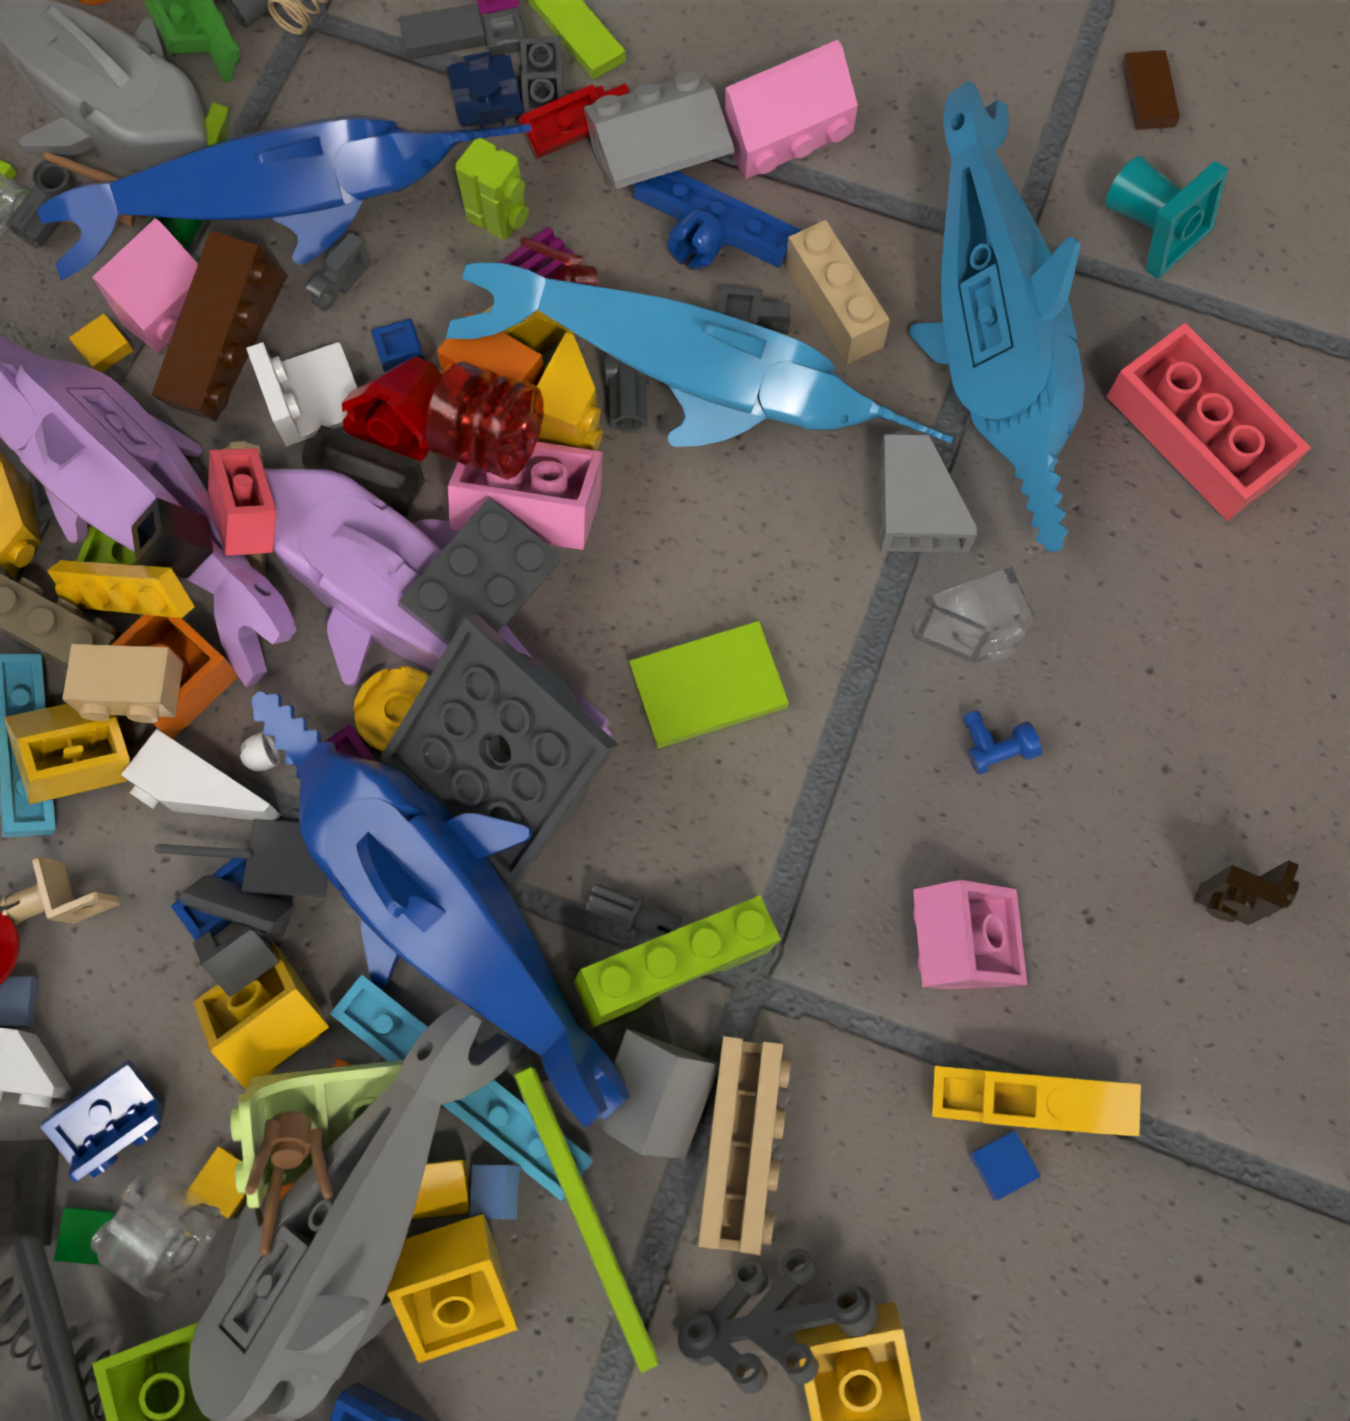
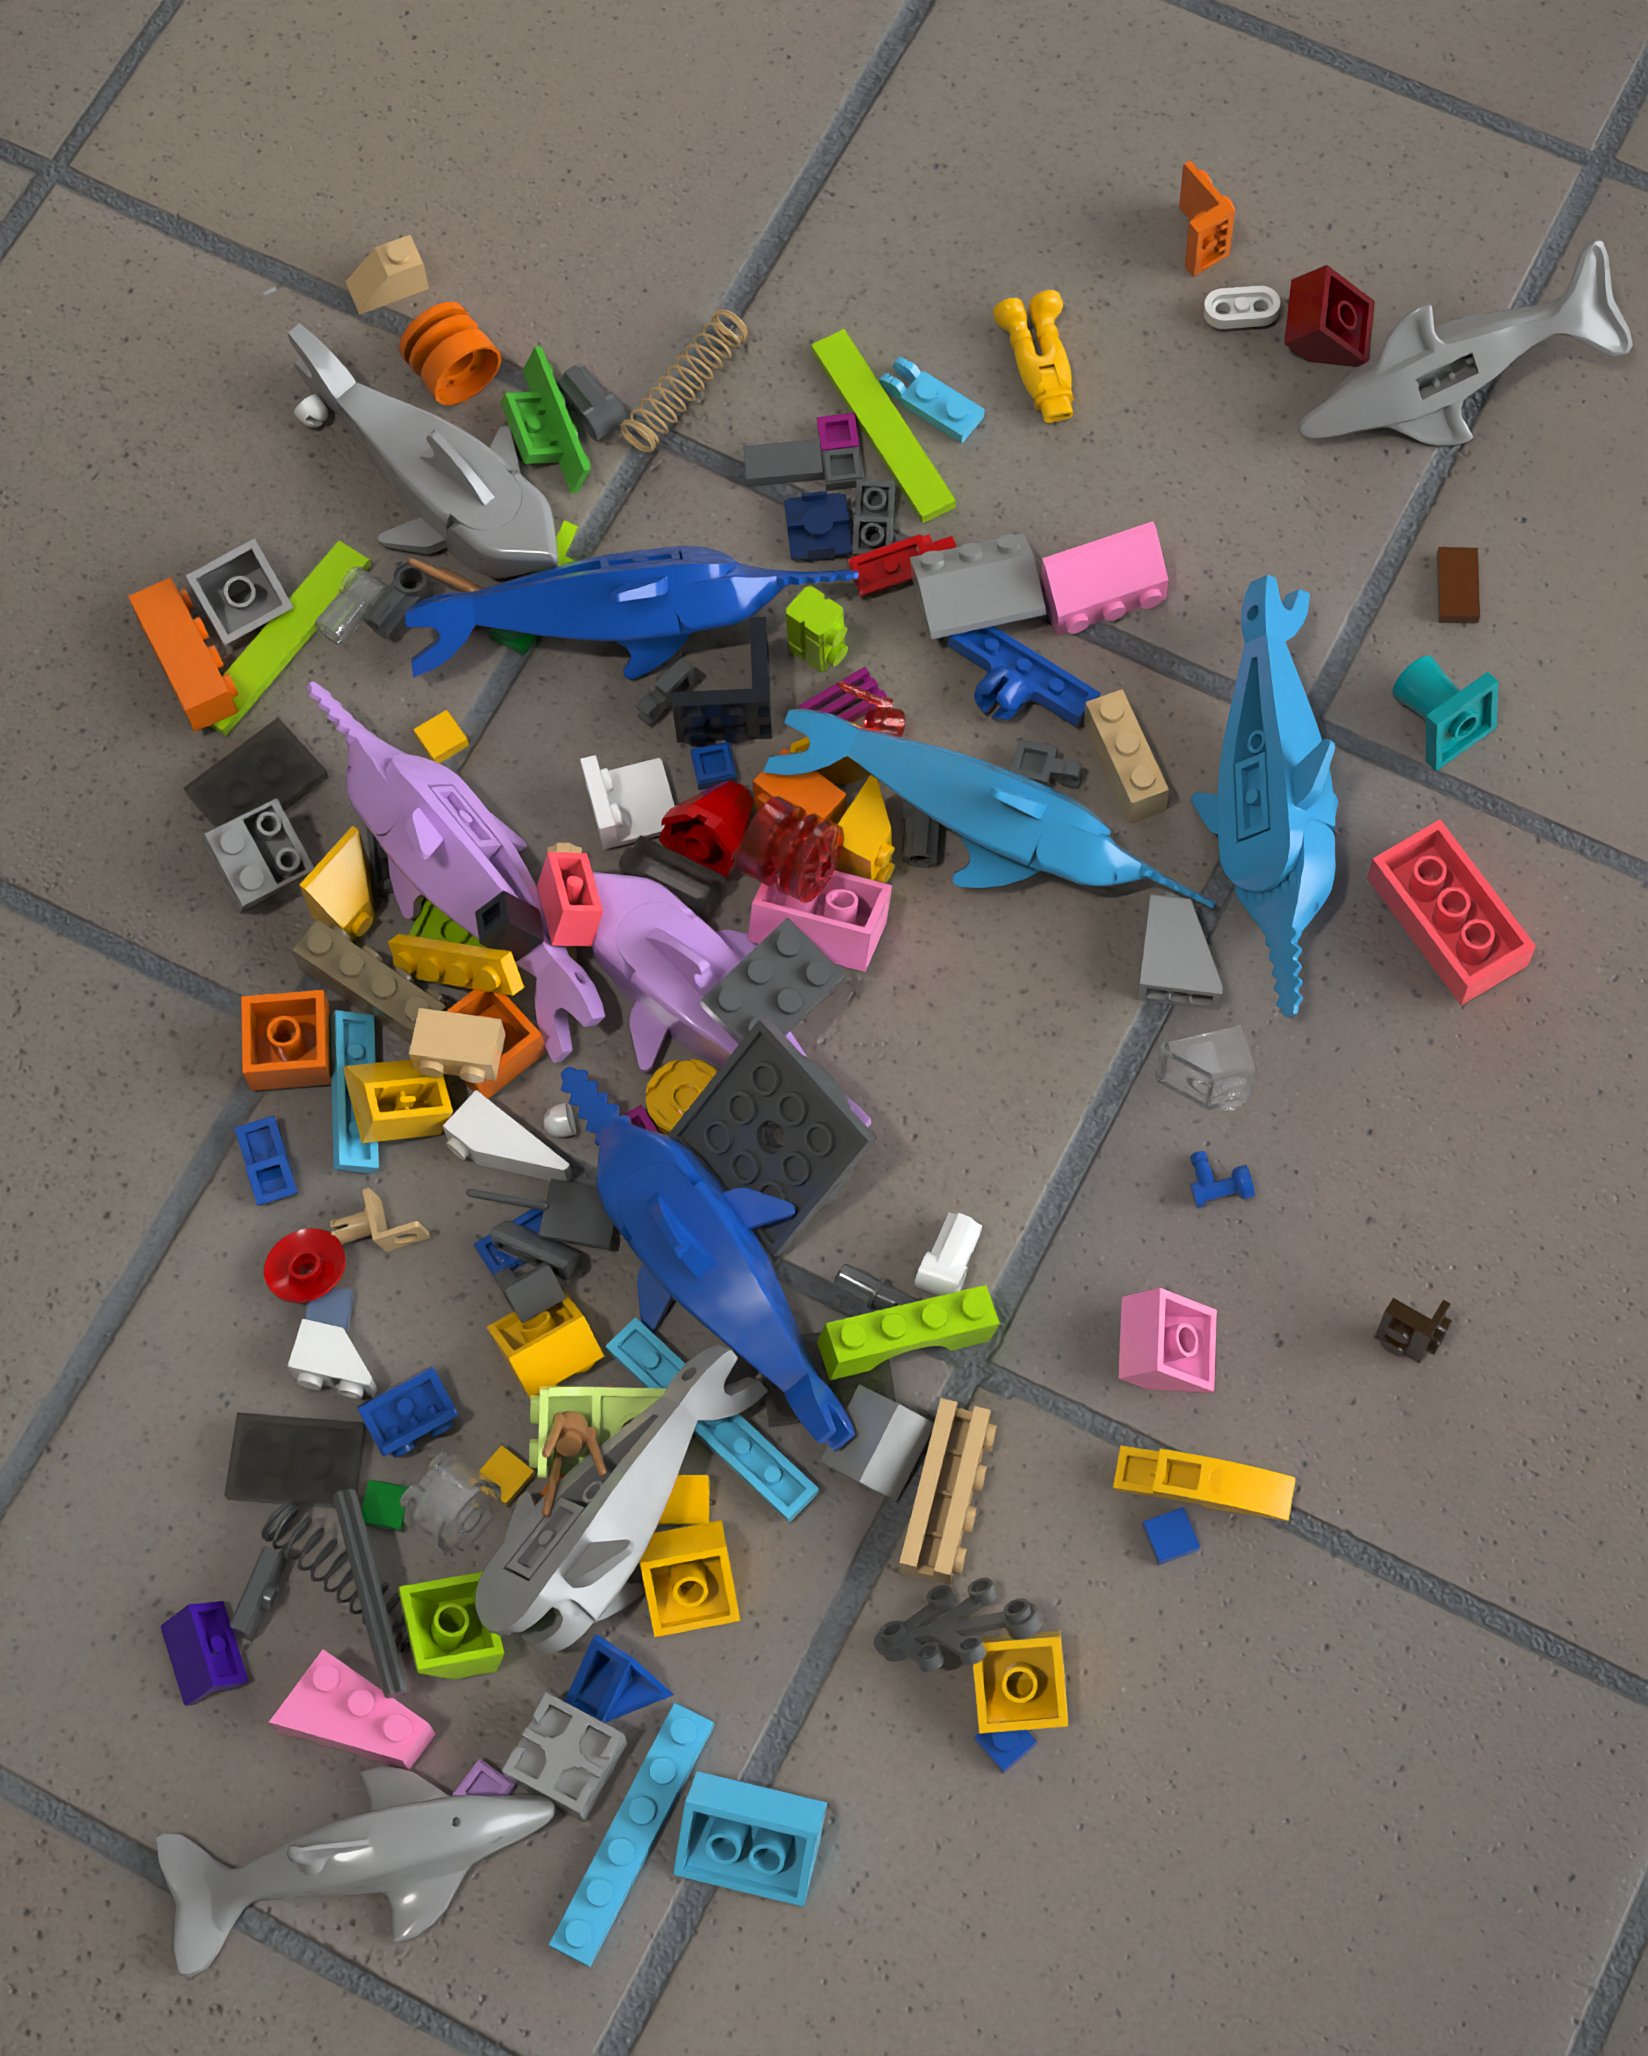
camera: 10 degrees right, 5 degrees down
(148, 284) = (499, 693): bright pink slope -> none
(217, 323) = (552, 734): reddish brown wedge -> none
(409, 283) = (730, 713): none -> black bracket
(494, 1191) = (733, 1505): medium blue tile -> none
(586, 1218) = (807, 1527): lime tile -> none
(708, 684) = (964, 1103): lime tile -> none
(709, 873) = (945, 1266): none -> white piece

